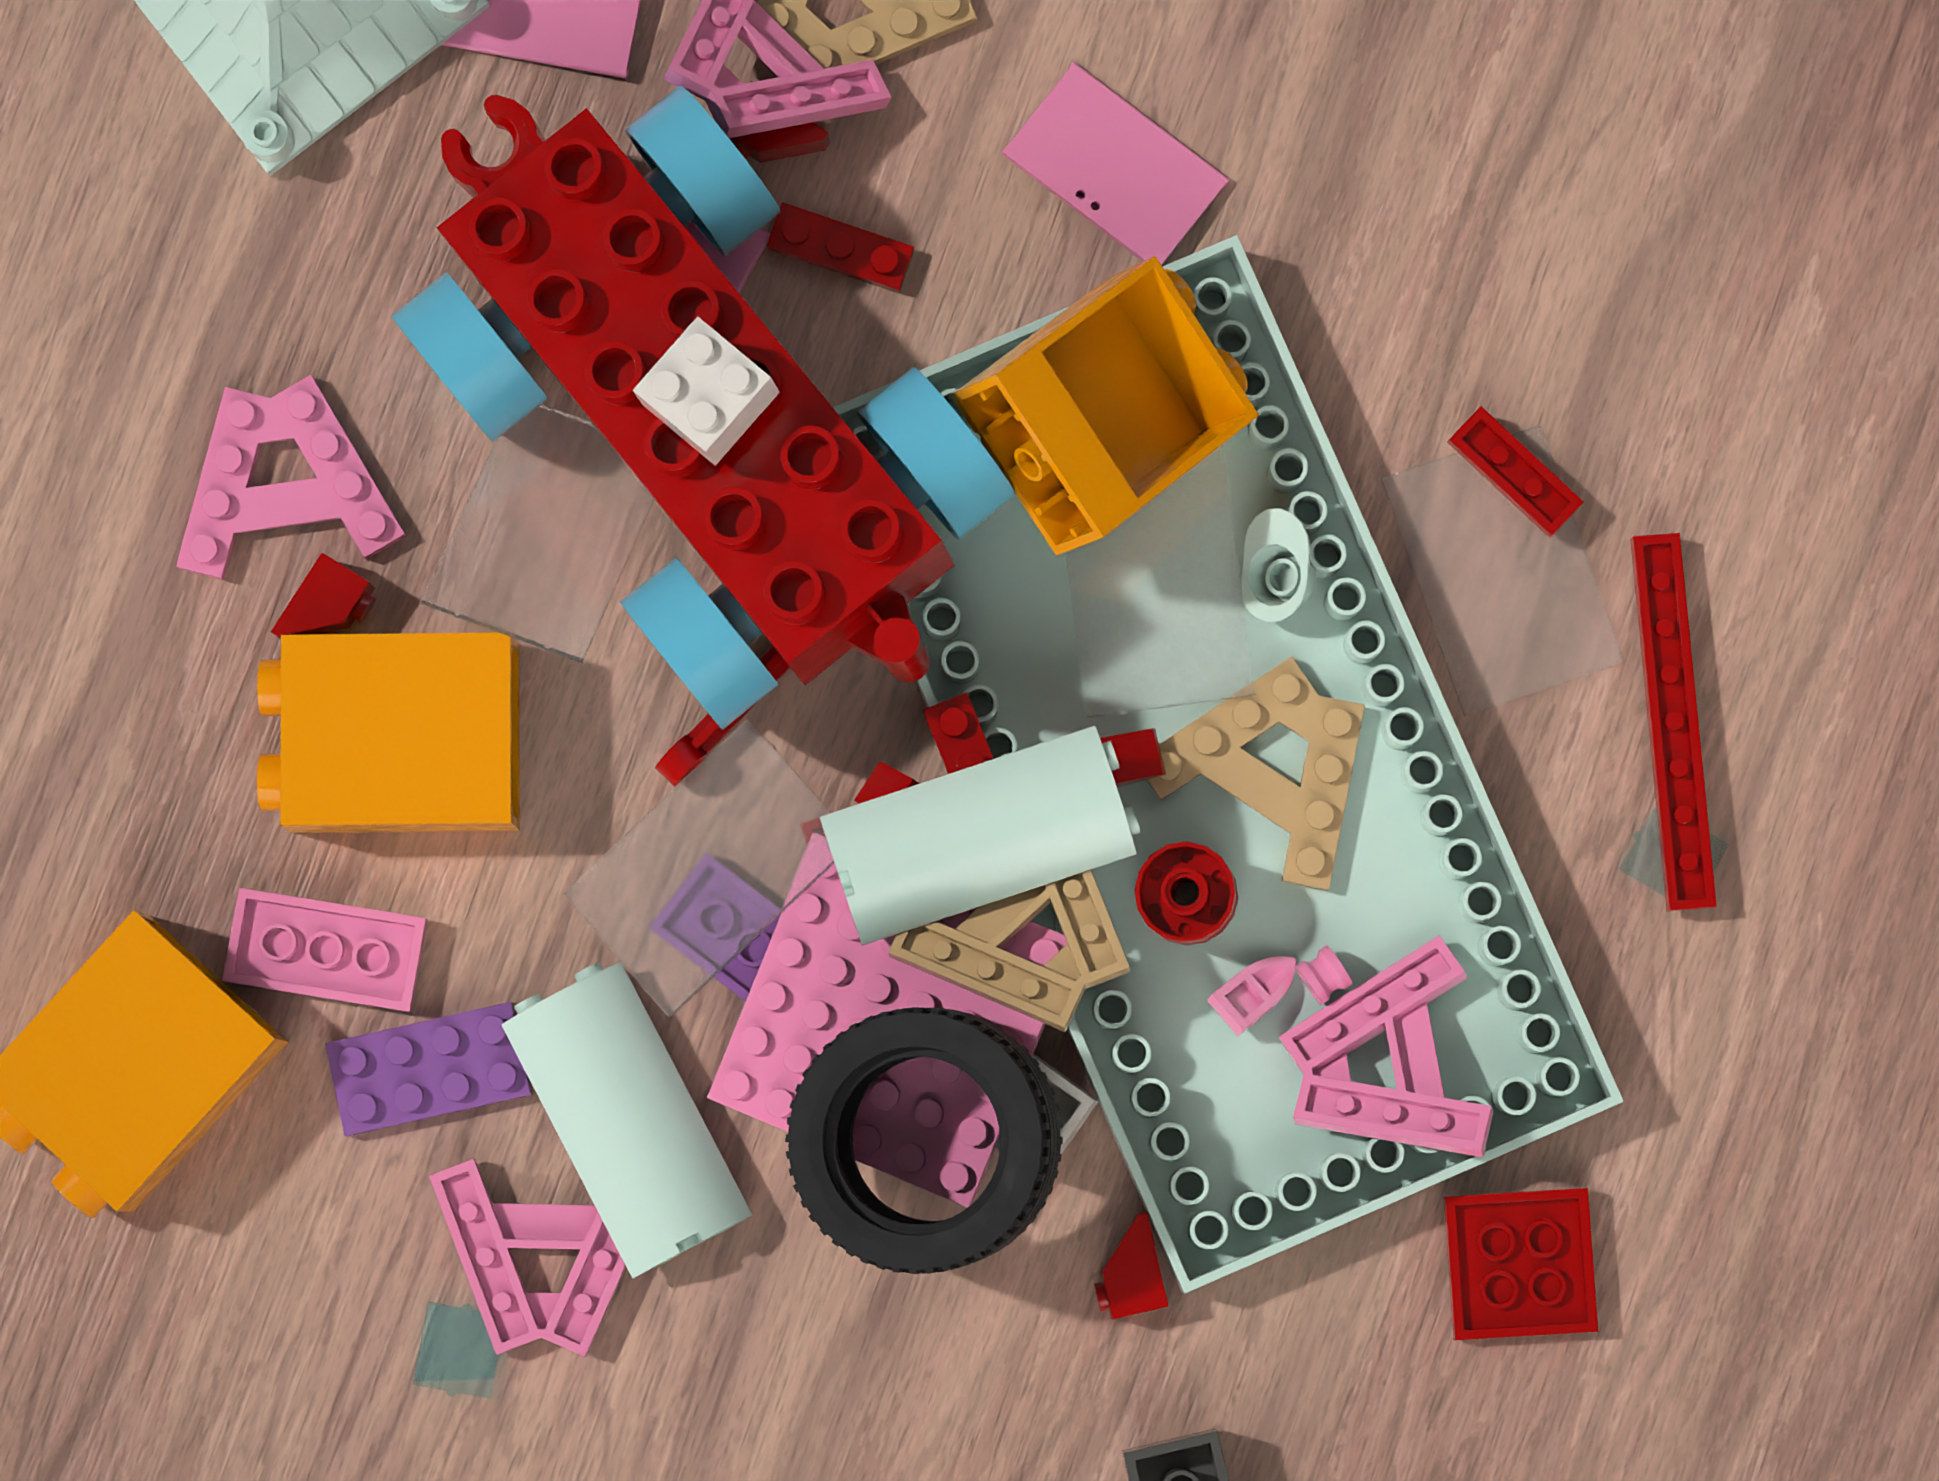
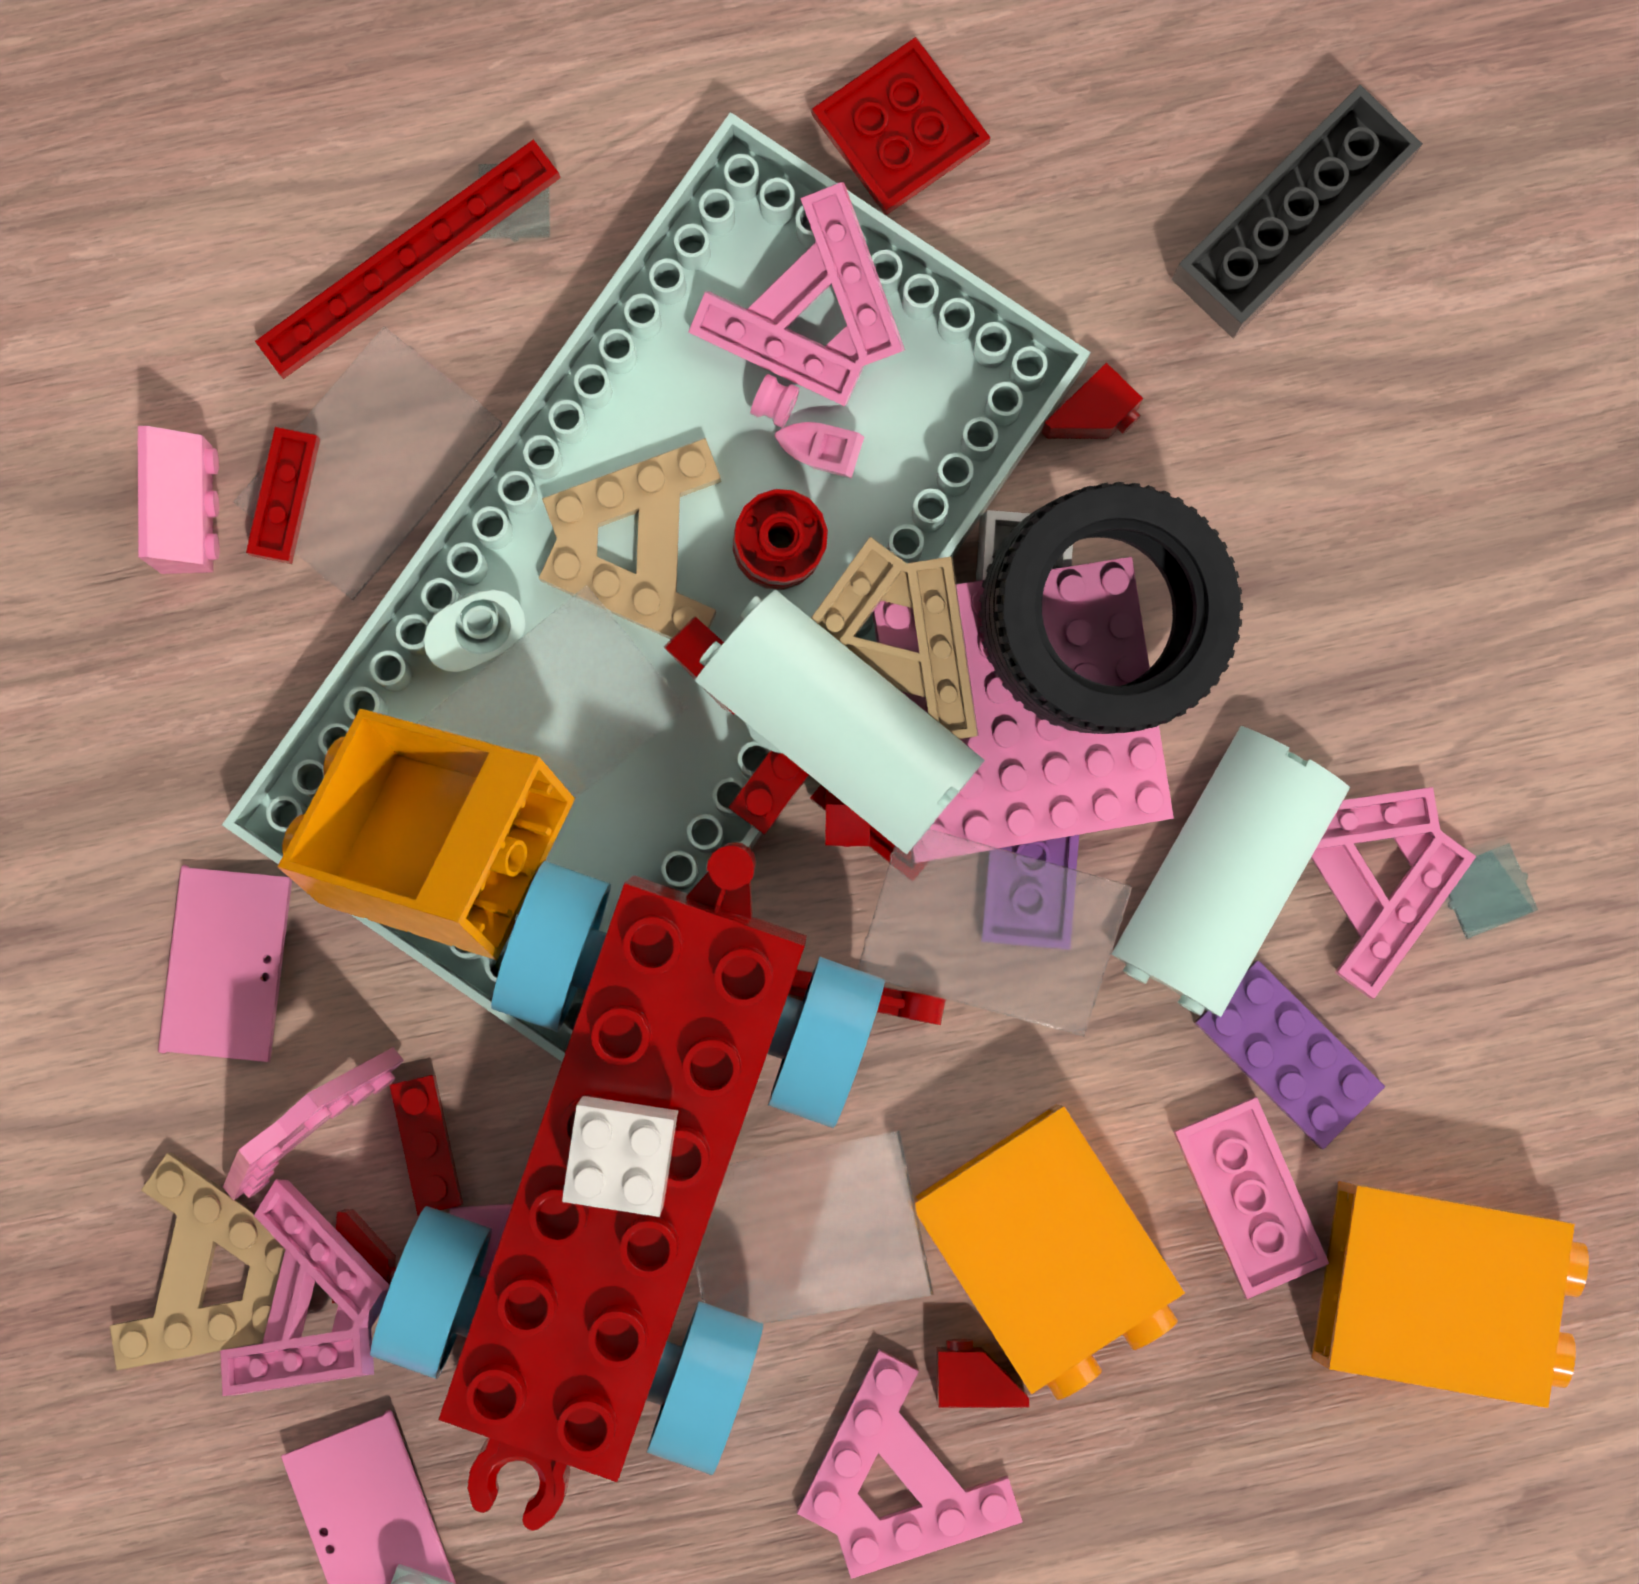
camera: 120 degrees left, 0 degrees up
(919, 159) = (261, 1155): none -> bright pink plate
(1567, 372) = (176, 501): none -> bright pink slope

